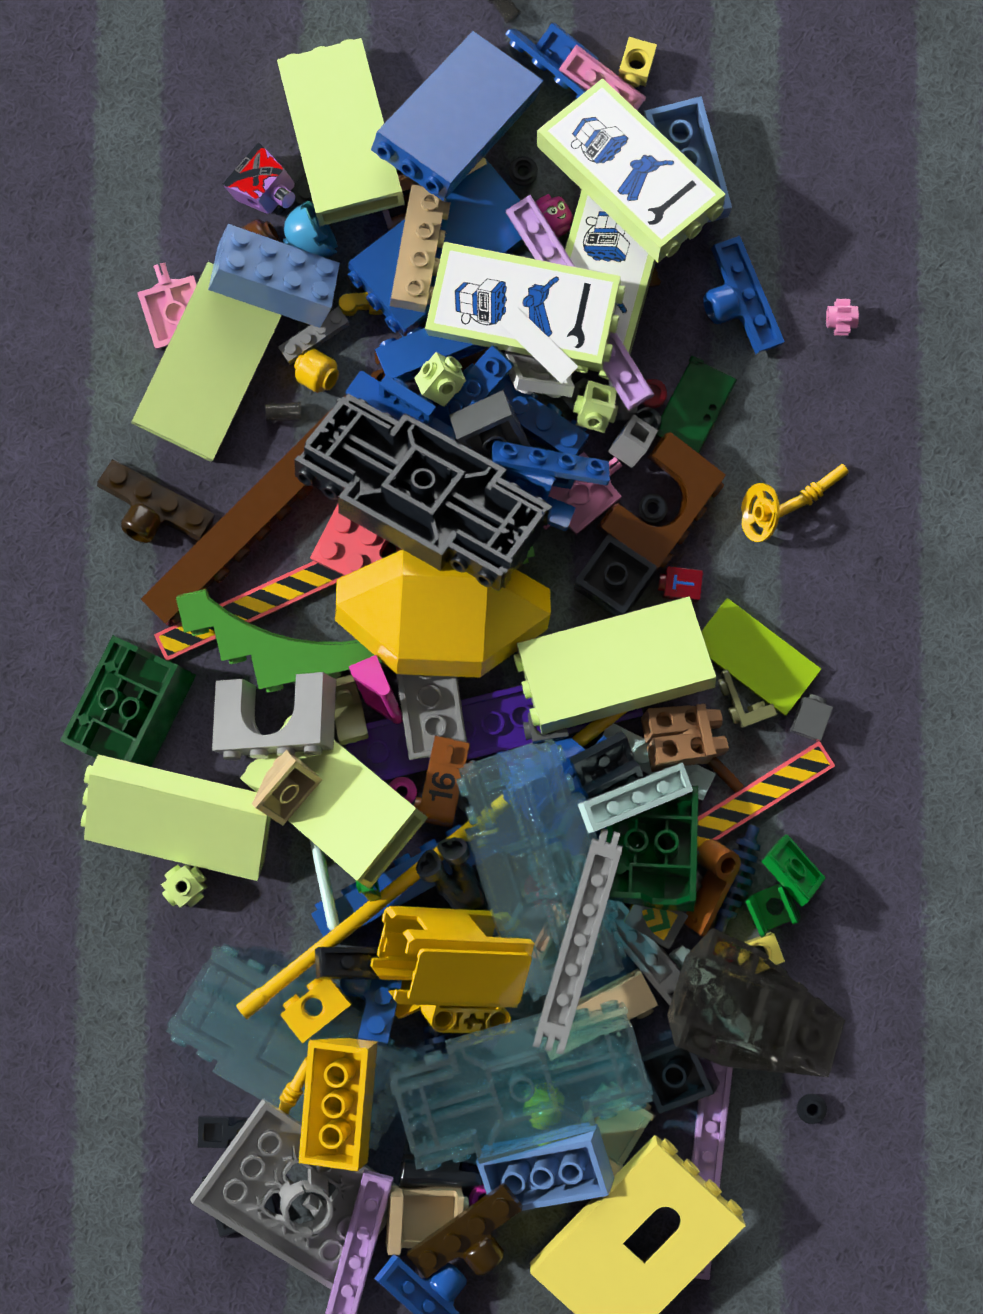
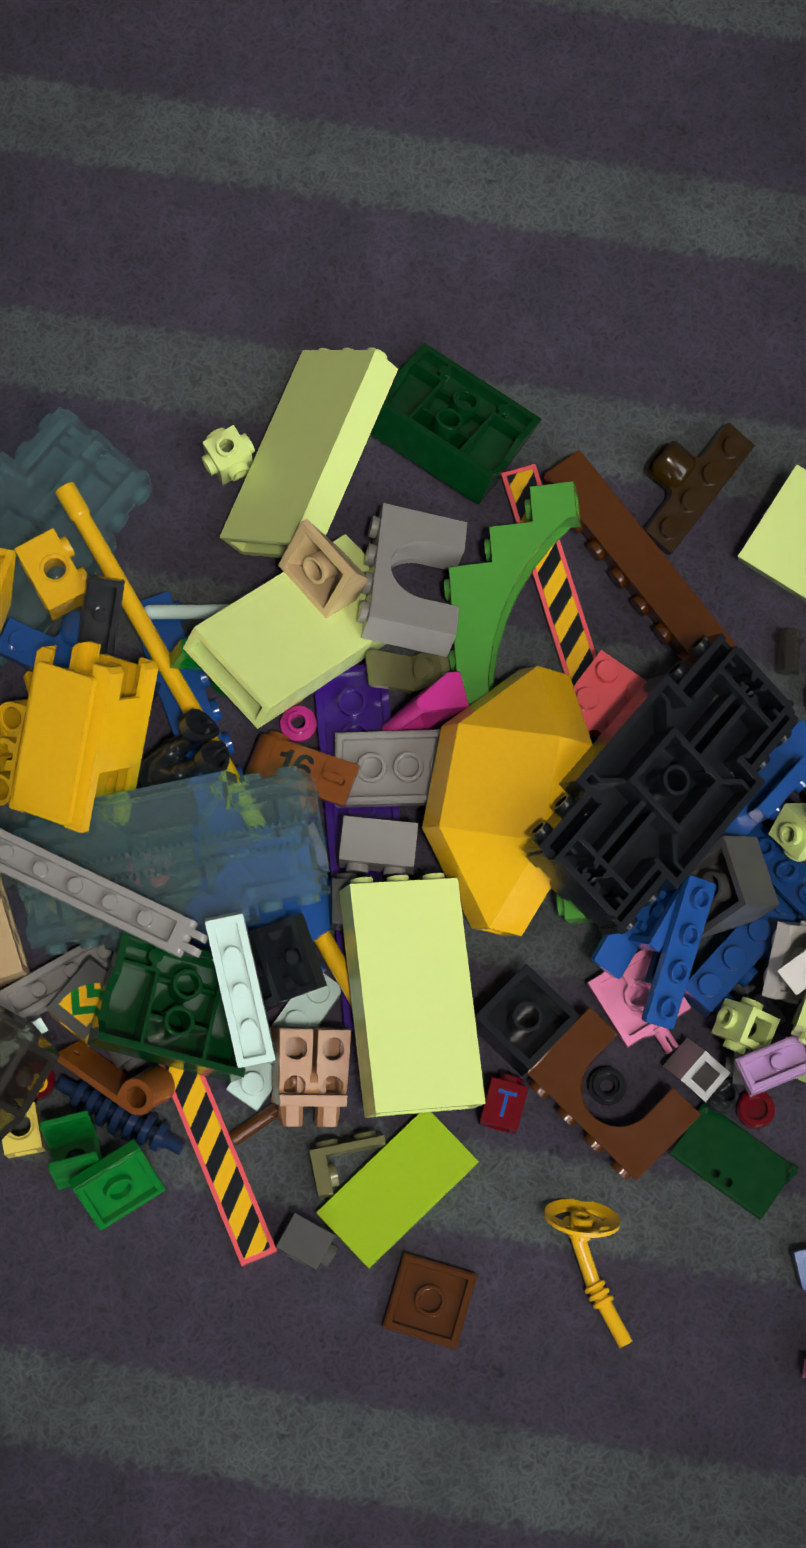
camera: 95 degrees right, 10 degrees down
(496, 710) = (378, 846): none -> light grey brick
(837, 619) = (430, 1301): none -> reddish brown tile

